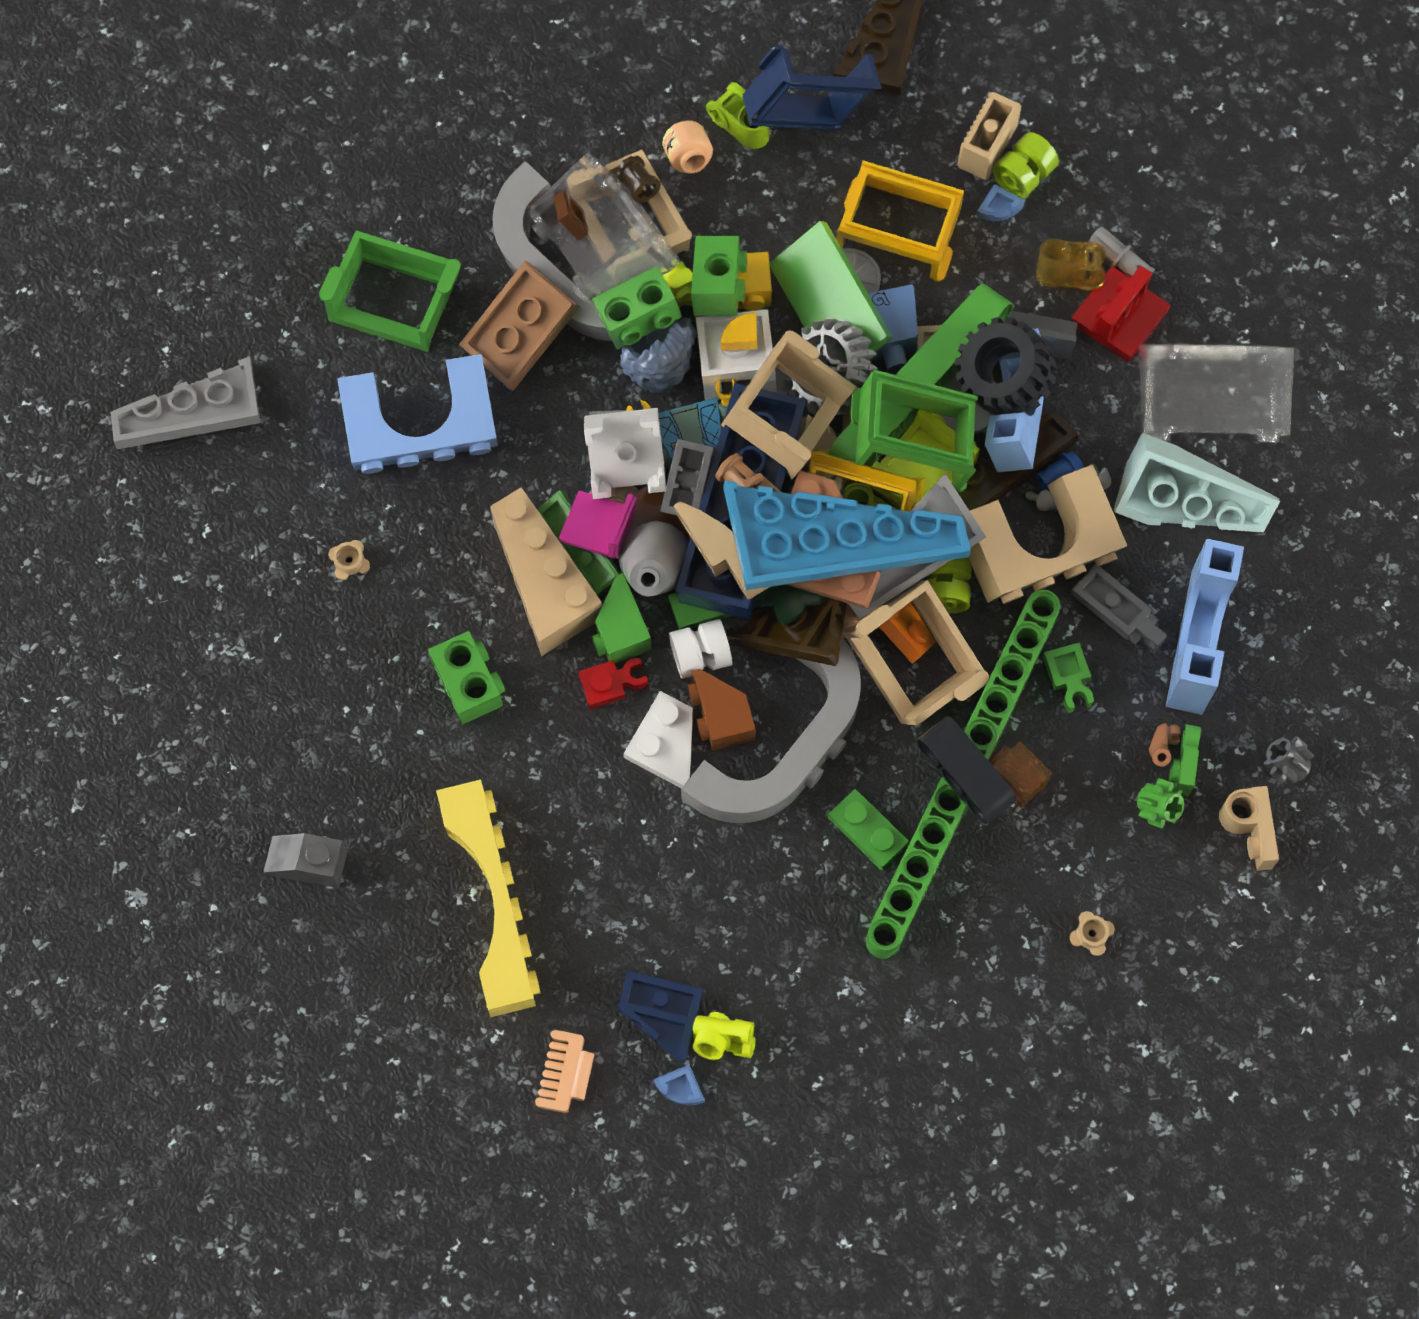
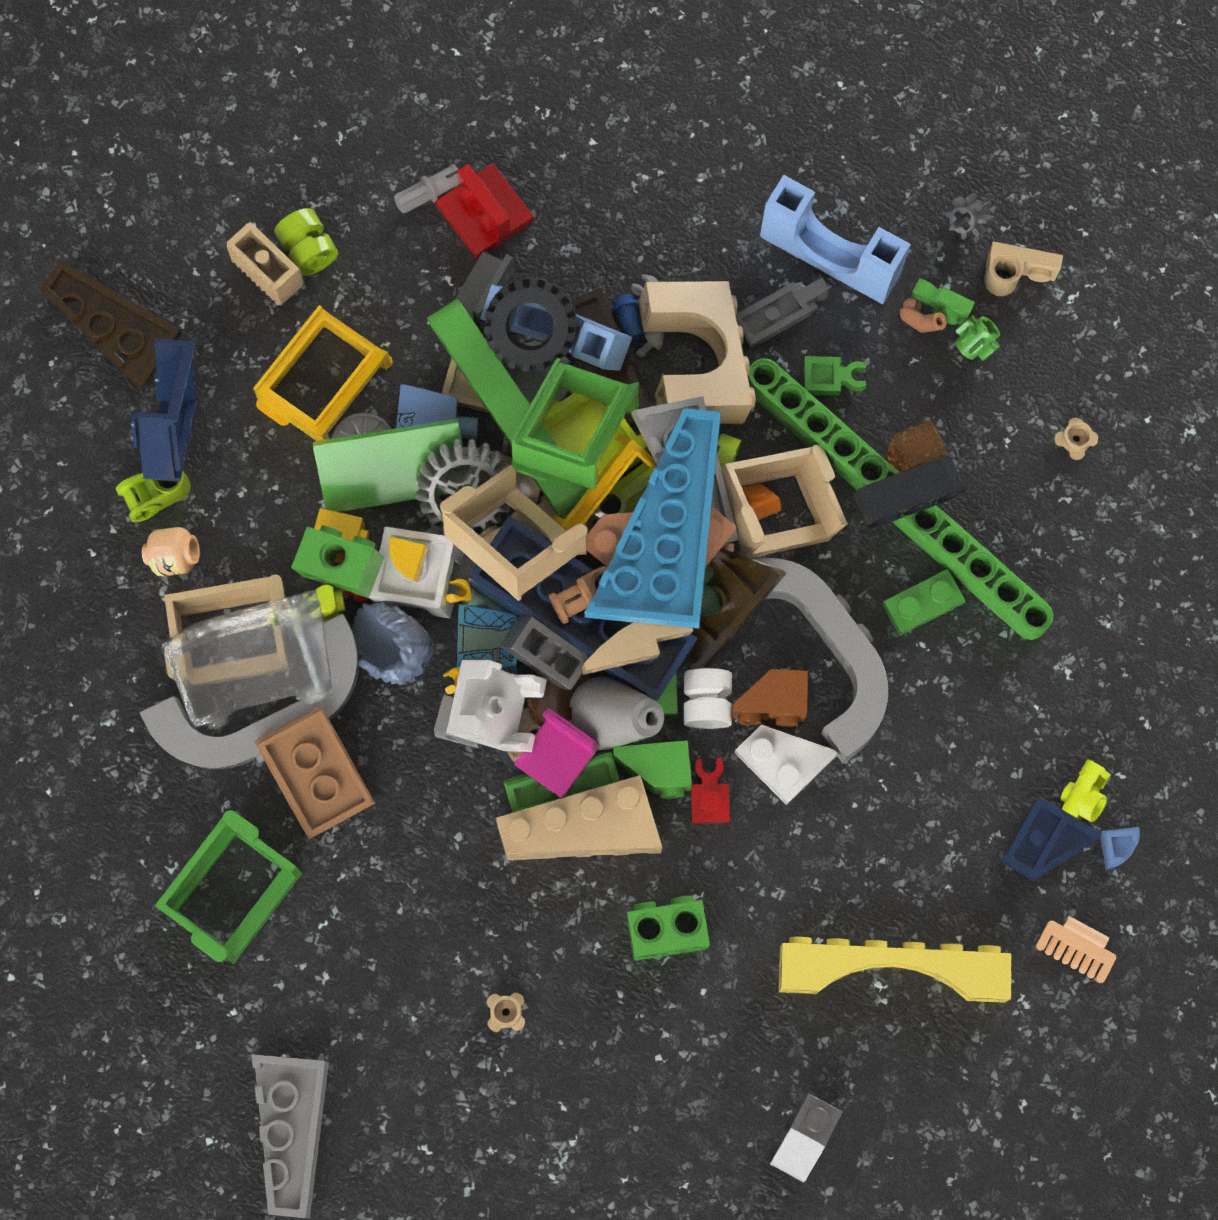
camera: 75 degrees left, 5 degrees up
(376, 444) = (405, 854): light blue arch -> none
(570, 215) = (216, 684): reddish brown tile -> none
(633, 301) = (342, 650): bright green brick -> none
(651, 182) = (186, 606): dark brown bush -> none
(999, 205) = (333, 281): medium blue tile -> none
(1068, 261) = (427, 232): clear yellow piece -> none
(1180, 488) = (676, 219): light aqua wedge -> none
(1216, 389) = (592, 150): clear windscreen -> none

